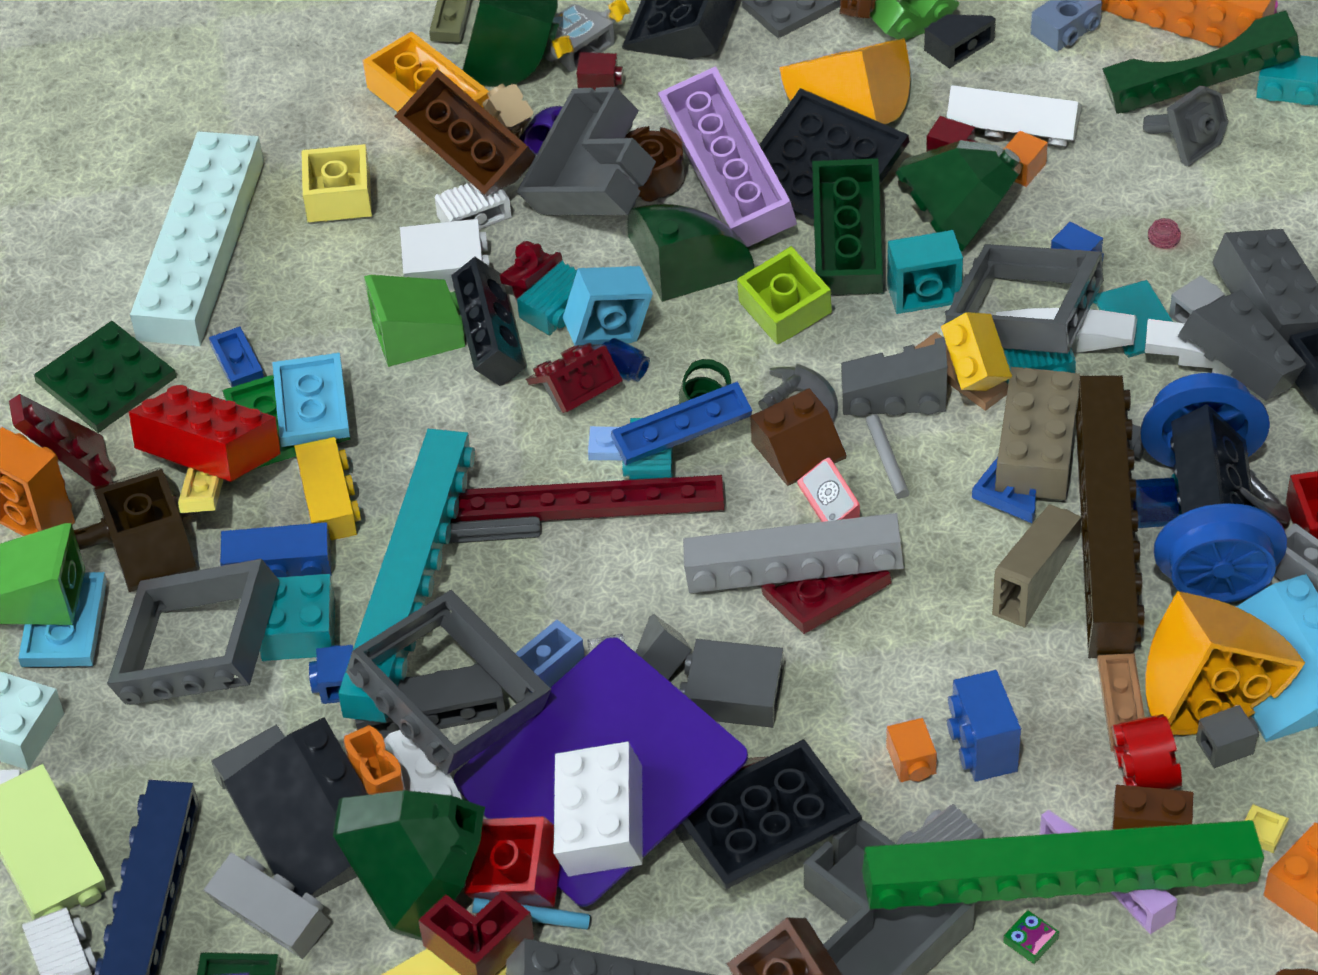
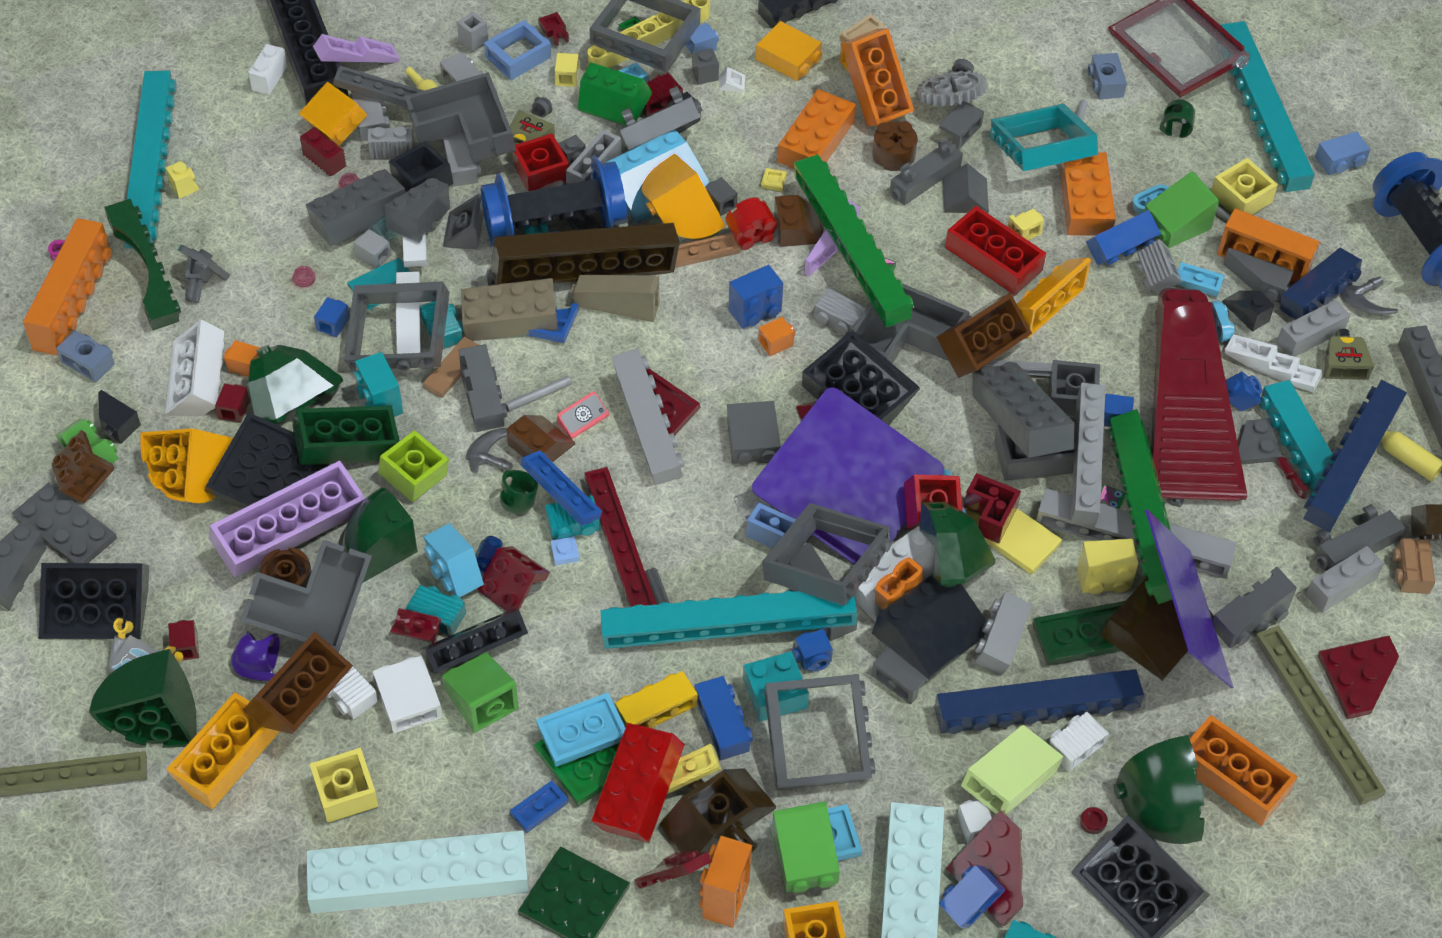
camera: 110 degrees left, 5 degrees up
(509, 108) = (257, 671): tan brick -> none
(598, 809) = (887, 459): white brick -> none
(662, 646) = (737, 472): dark grey slope -> none
(976, 351) = (464, 334): yellow brick -> none

